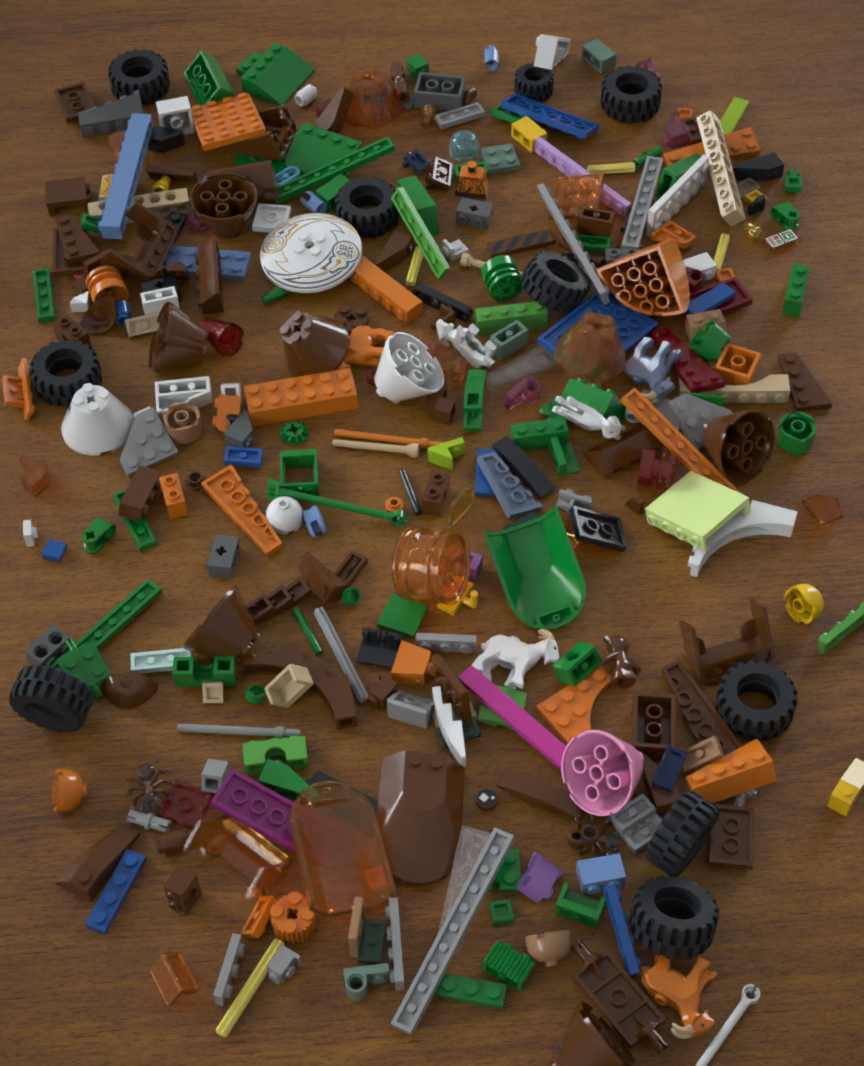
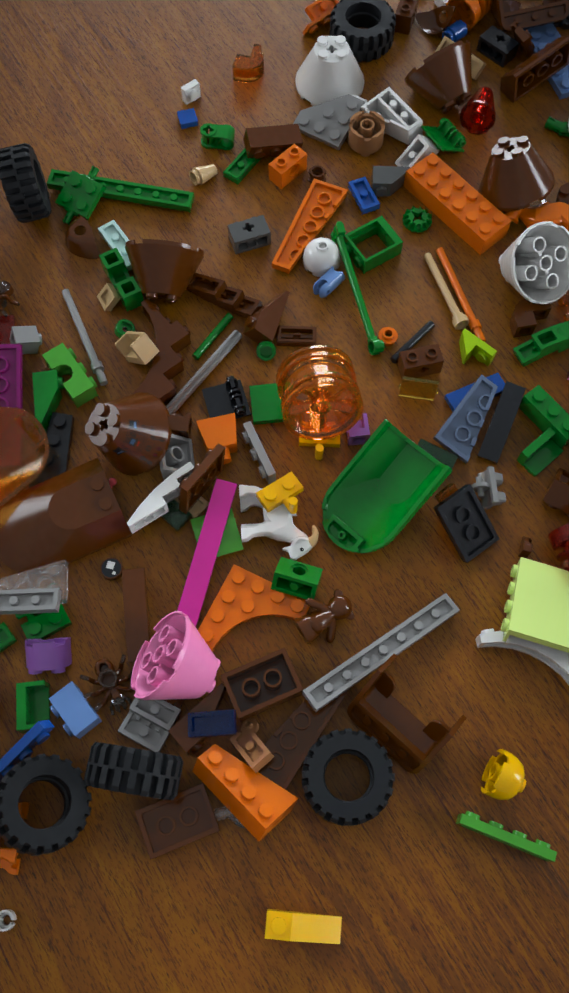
camera: 60 degrees right, 15 degrees up
(47, 646) = (83, 159): dark grey brick -> none
(130, 565) = (202, 174): none -> tan cone
(154, 300) = (485, 48): white brick -> none
(220, 375) = (446, 136): none -> green hinge
(226, 406) = (402, 152): orange brick -> none
(395, 716) = (131, 432): none -> reddish brown cone
(498, 639) = (281, 492): none -> yellow plate
(670, 635) = (378, 652): none -> light grey plate

